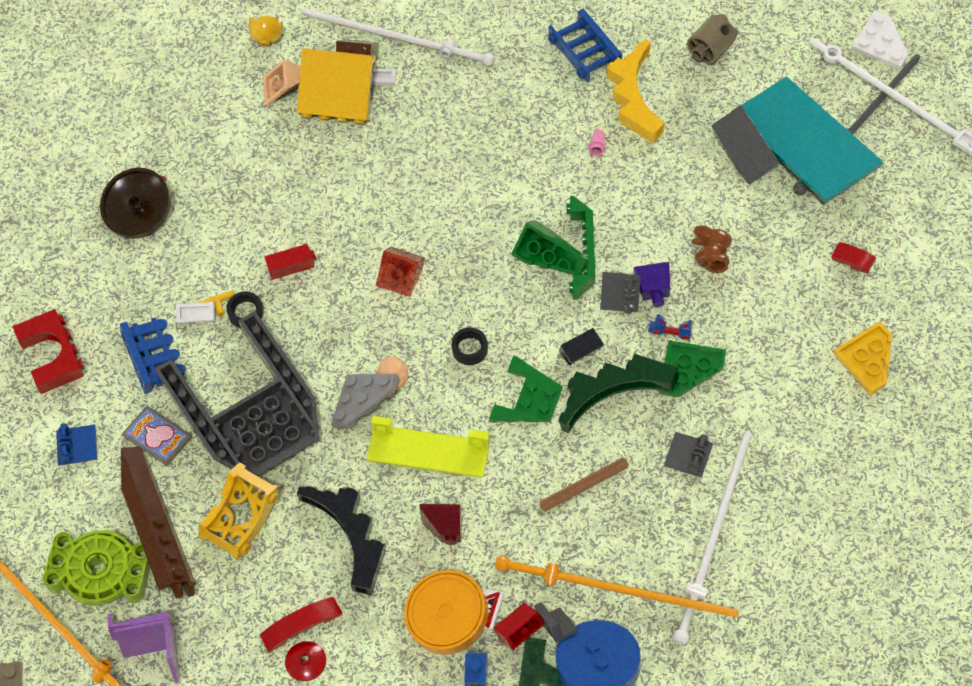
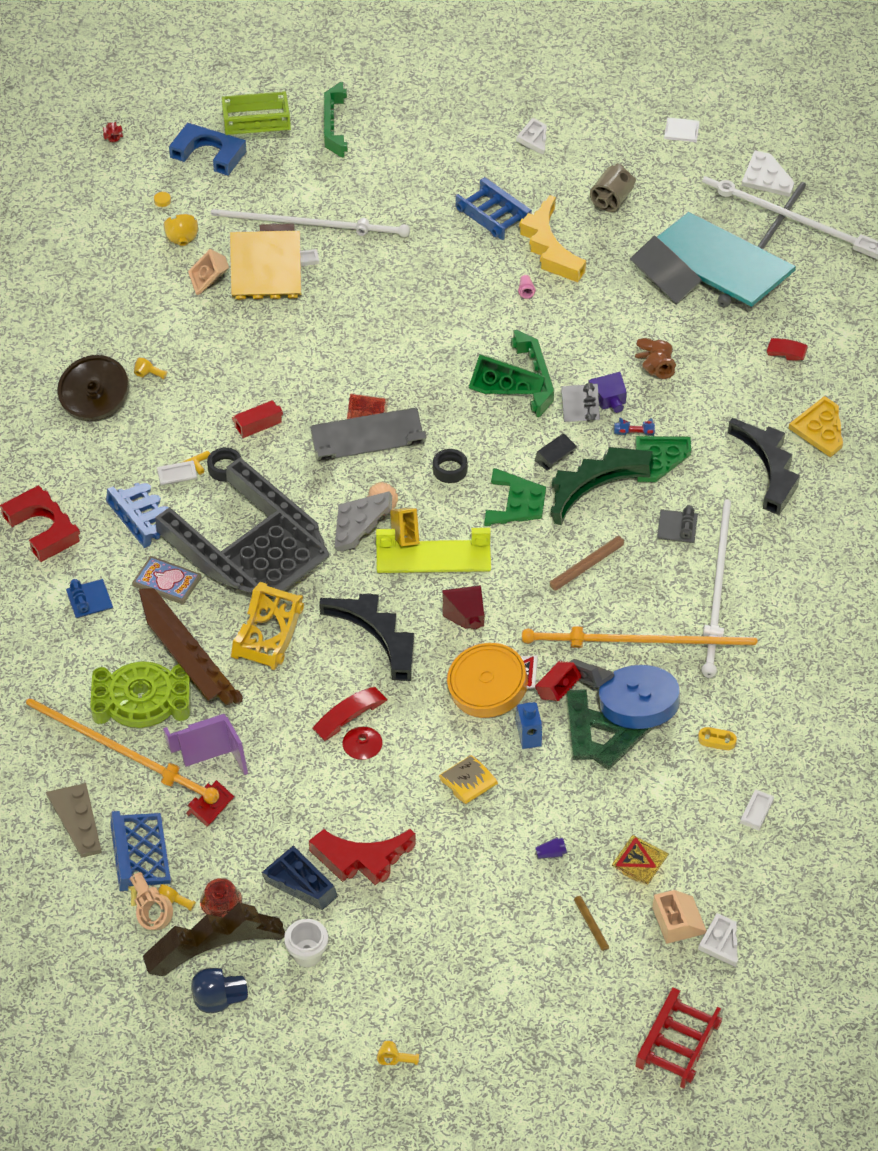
camera: 15 degrees left, 10 degrees down
(191, 185) = (143, 367): none -> yellow bar
(393, 296) = (367, 434): none -> dark grey bracket
(404, 409) = (405, 524): none -> yellow torso
(811, 394) = (777, 462): none -> black arch

